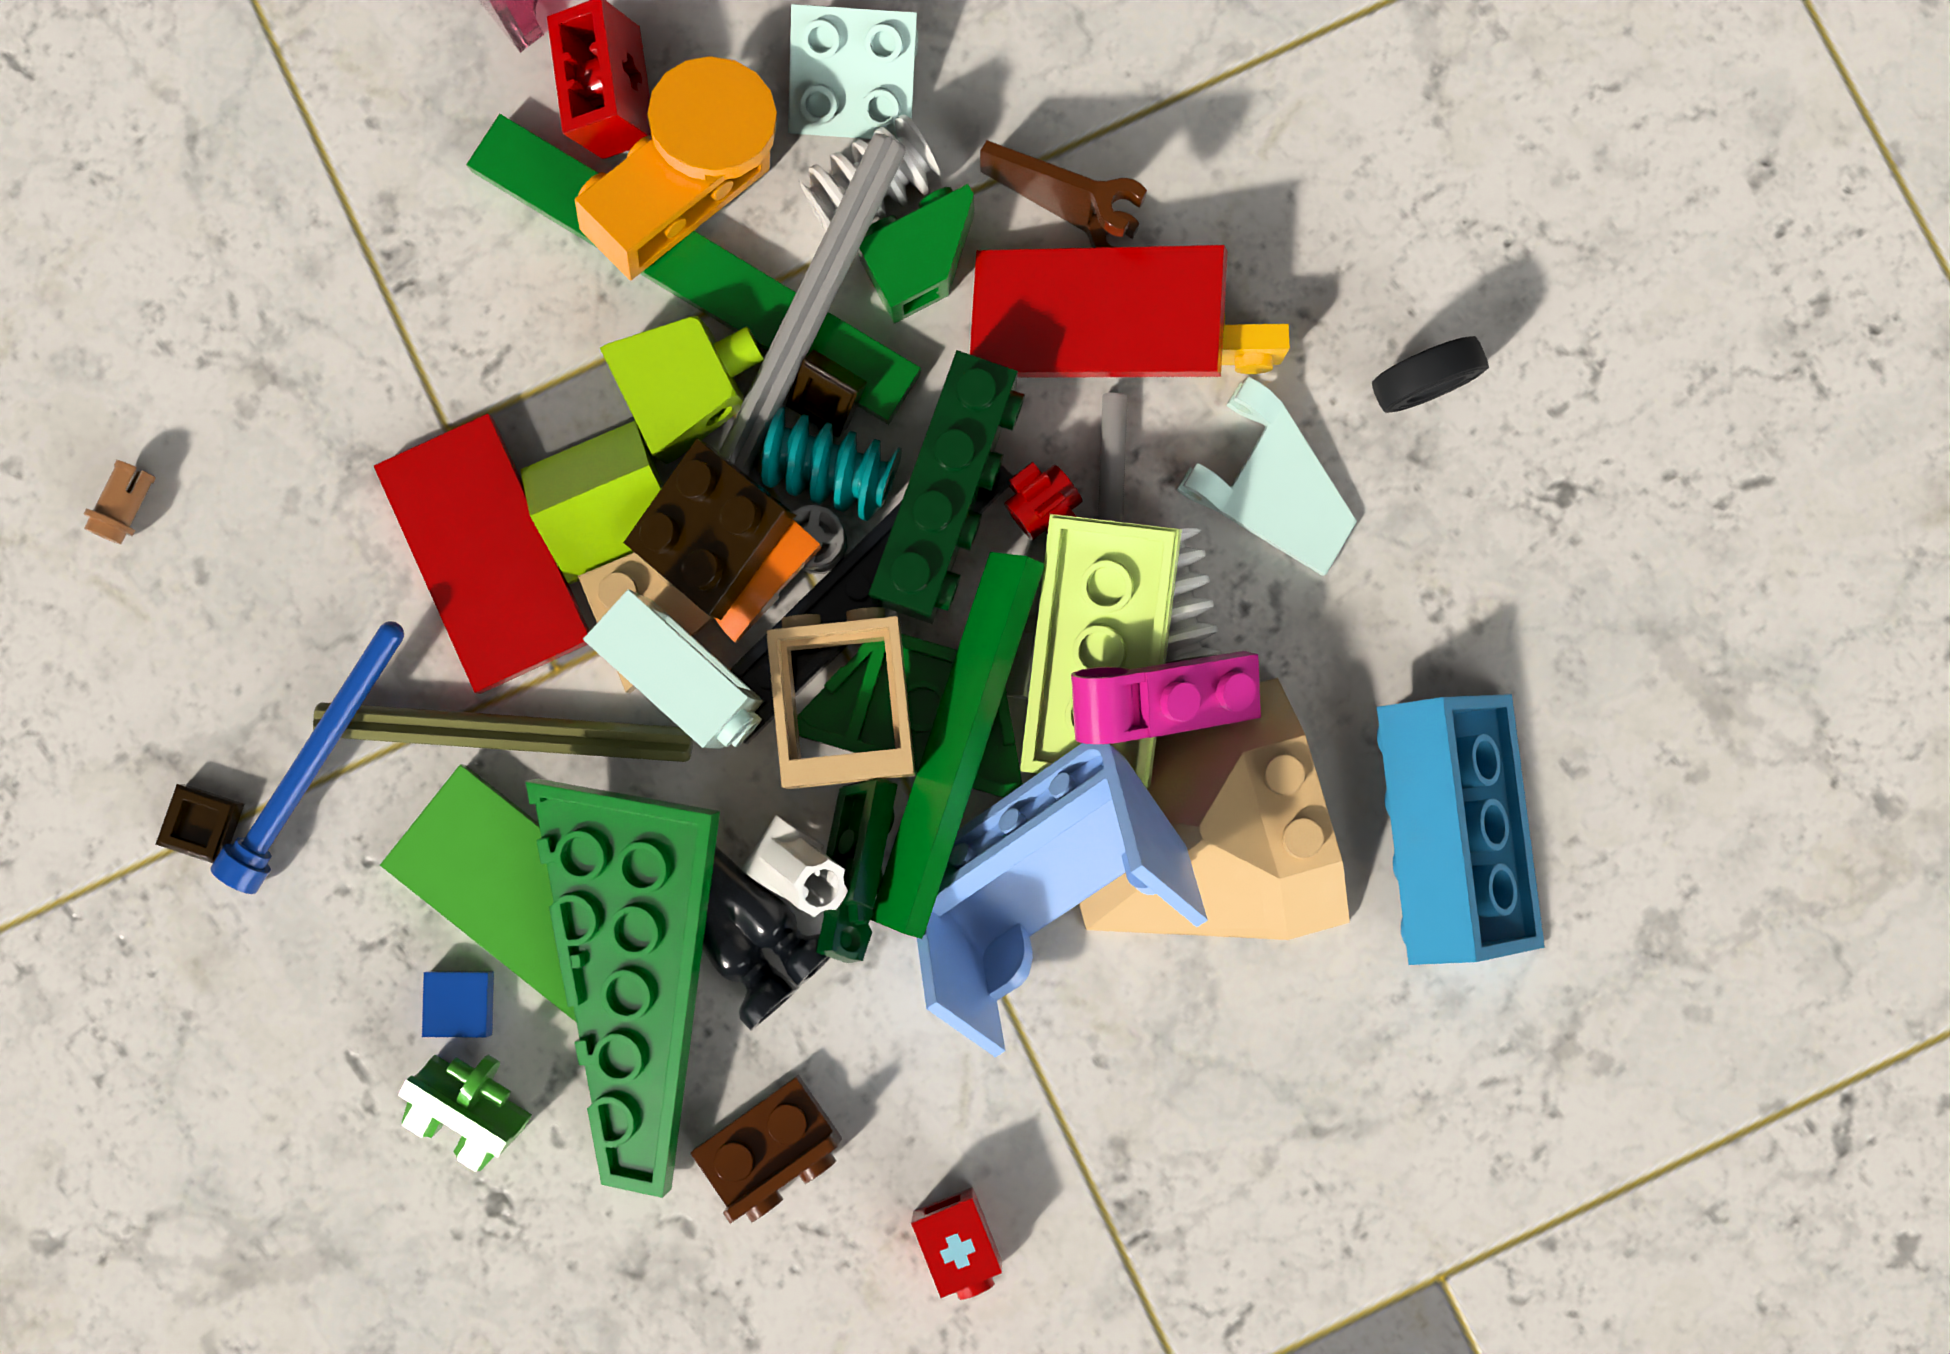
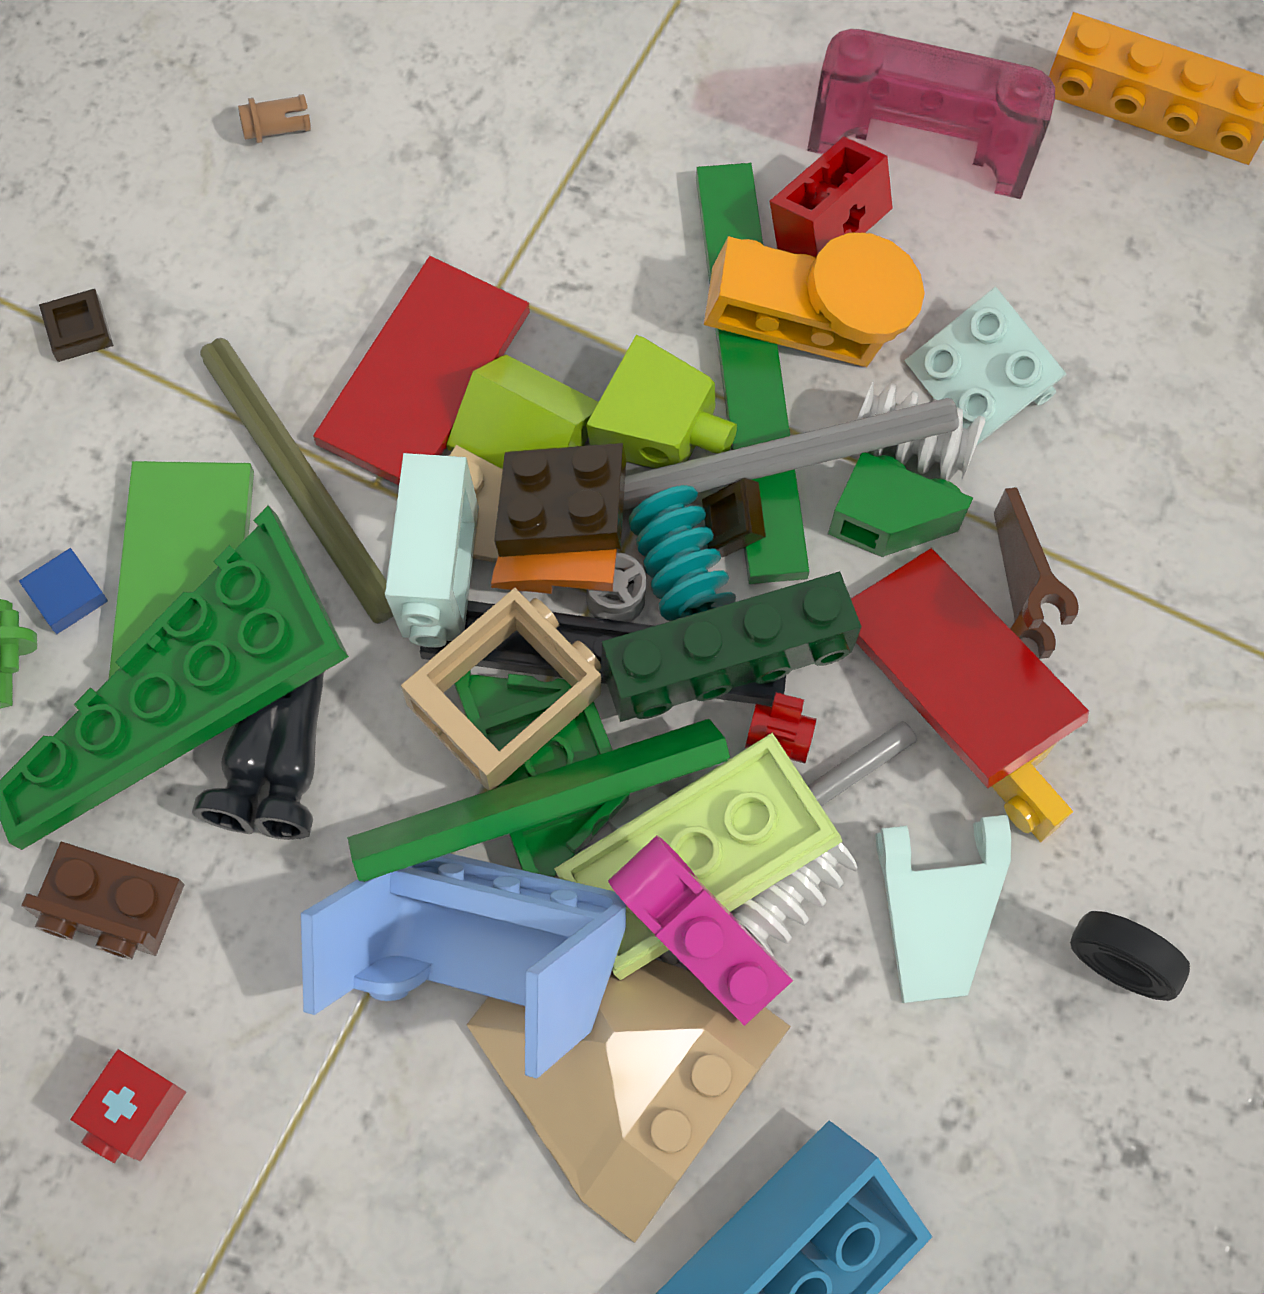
camera: 45 degrees right, 15 degrees down
(246, 860) = (68, 370): blue piece -> none
(796, 868) = (348, 751): white piece -> none
(857, 844) = (377, 796): dark green hinge -> none

